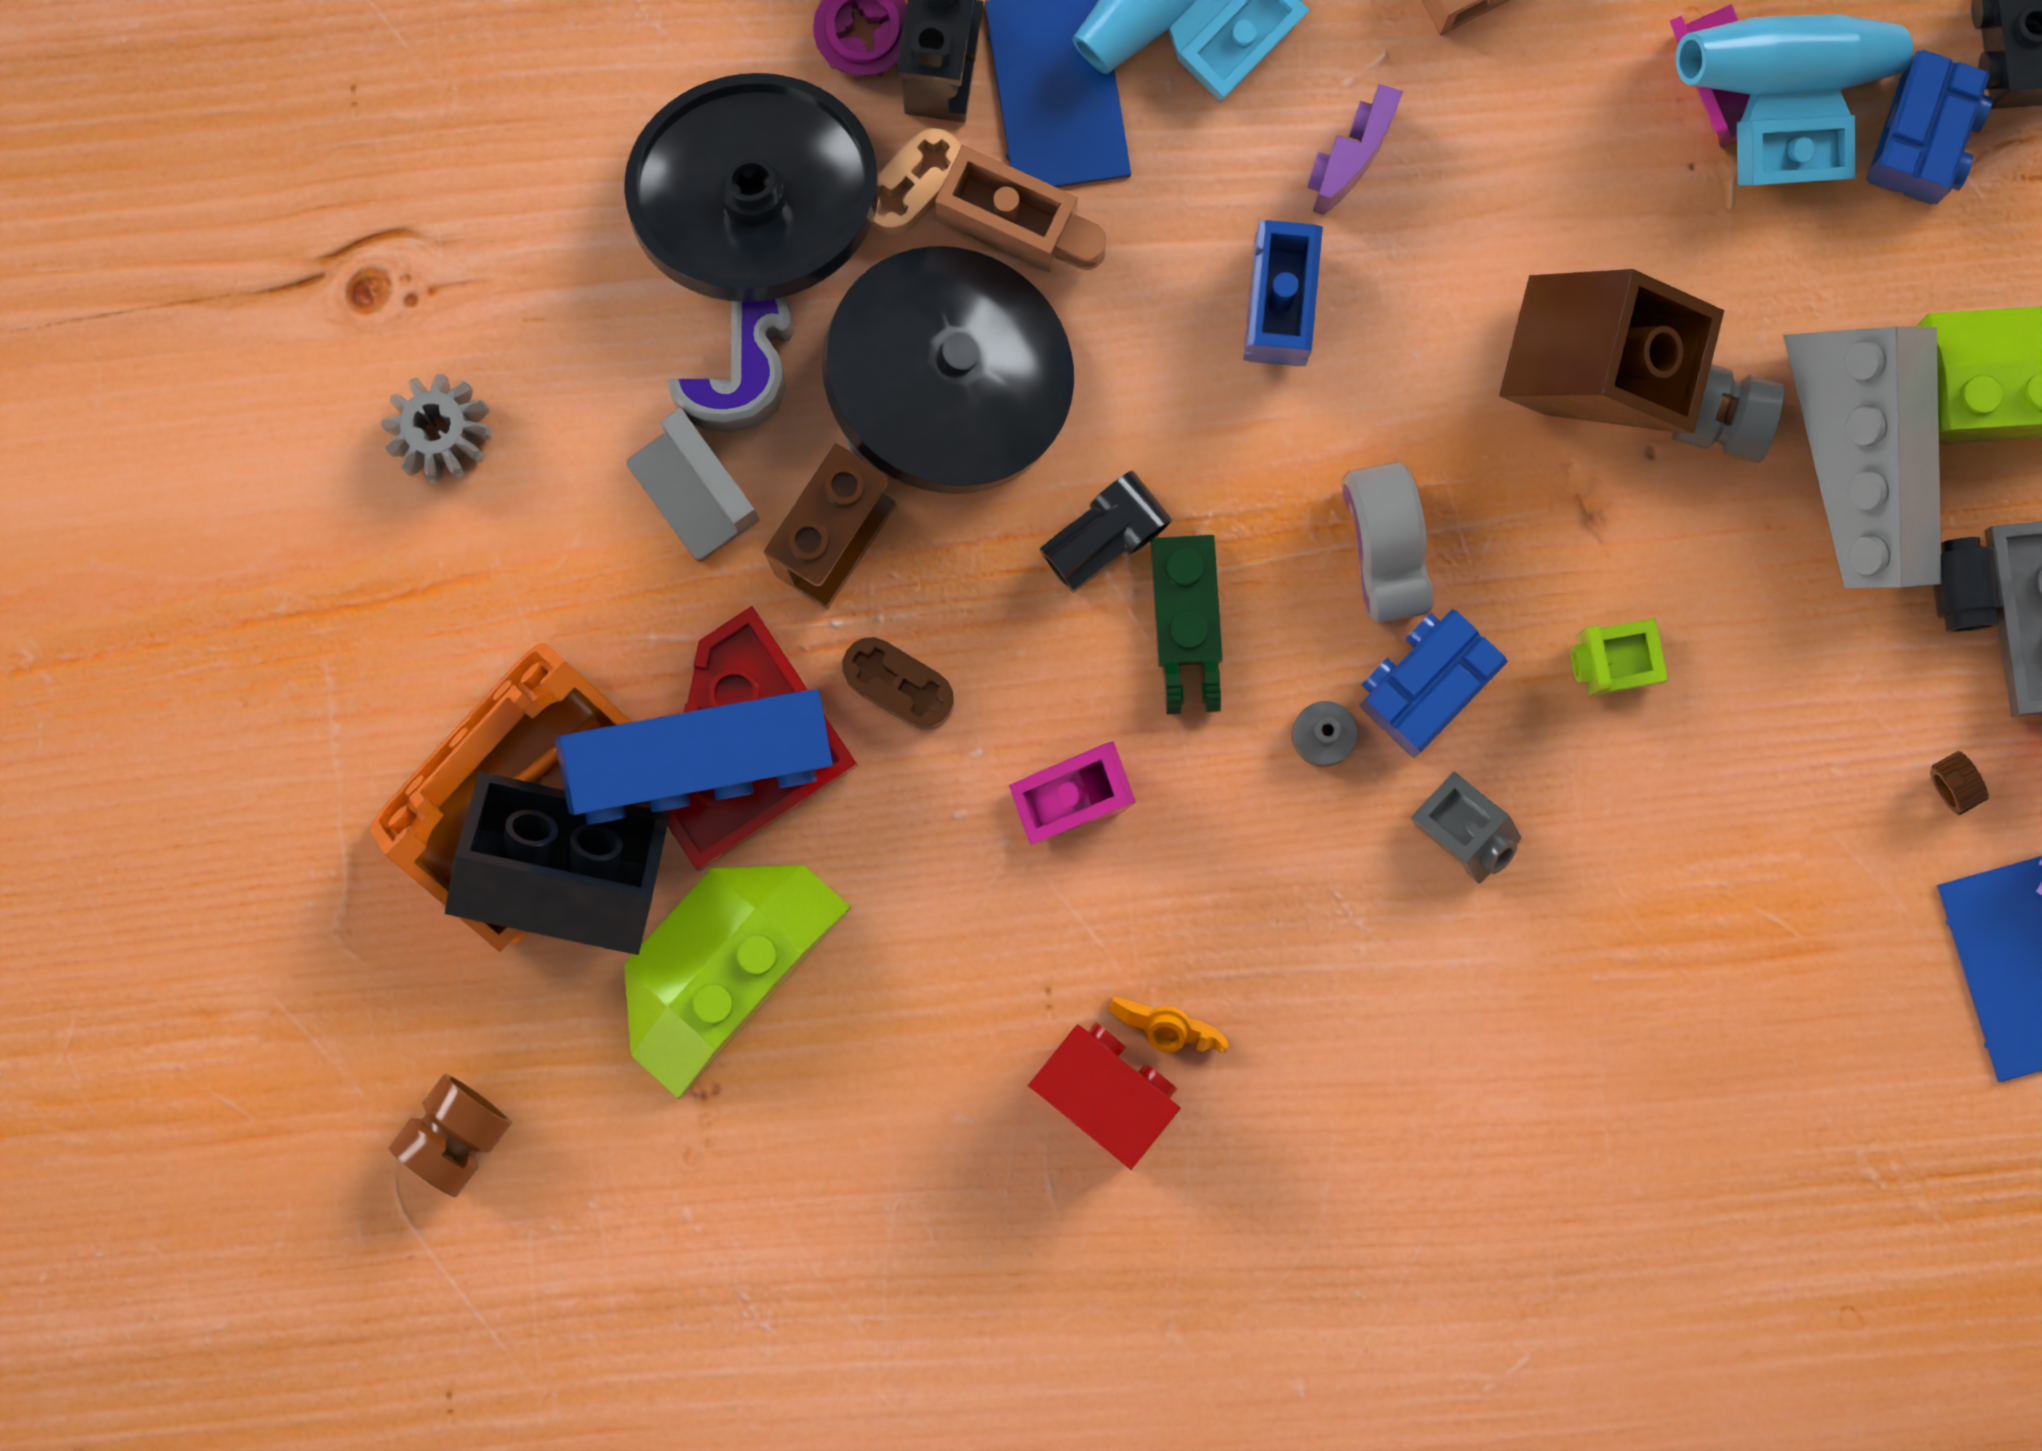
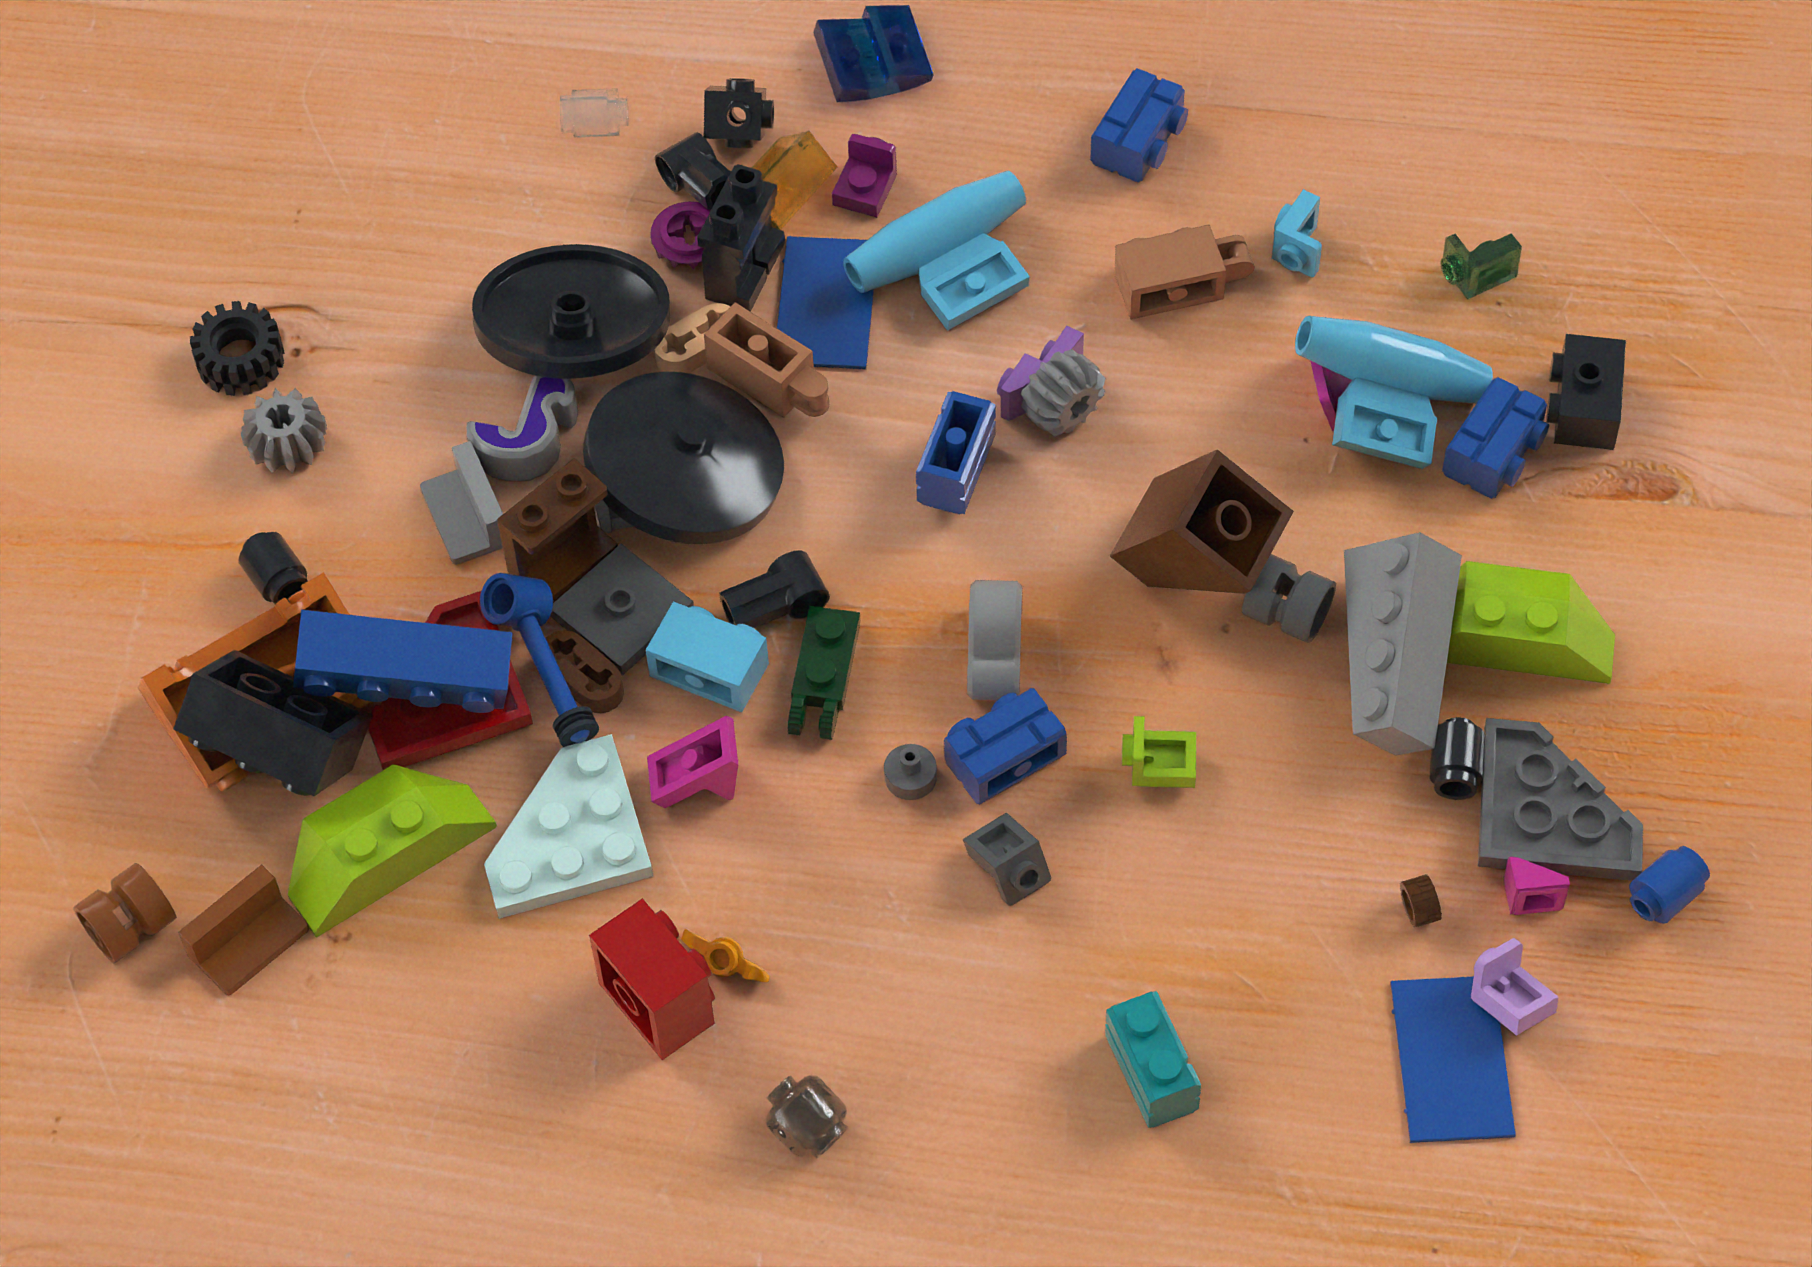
camera: 15 degrees right, 25 degrees down
(314, 292) = (230, 327): none -> black tyre
(484, 627) = (272, 566): none -> black brick
(598, 1121) = (242, 931): none -> dark orange panel
(802, 622) = (526, 606): none -> blue piece
(922, 586) = (618, 607): none -> dark grey plate
(943, 902) = (570, 834): none -> light aqua plate
(1048, 634) = (707, 656): none -> medium azure brick
(1318, 1217) = (806, 1116): none -> clear smoke head
(1394, 179) = (1063, 392): none -> light grey gear
(1698, 1060) = (1152, 1059): none -> teal brick

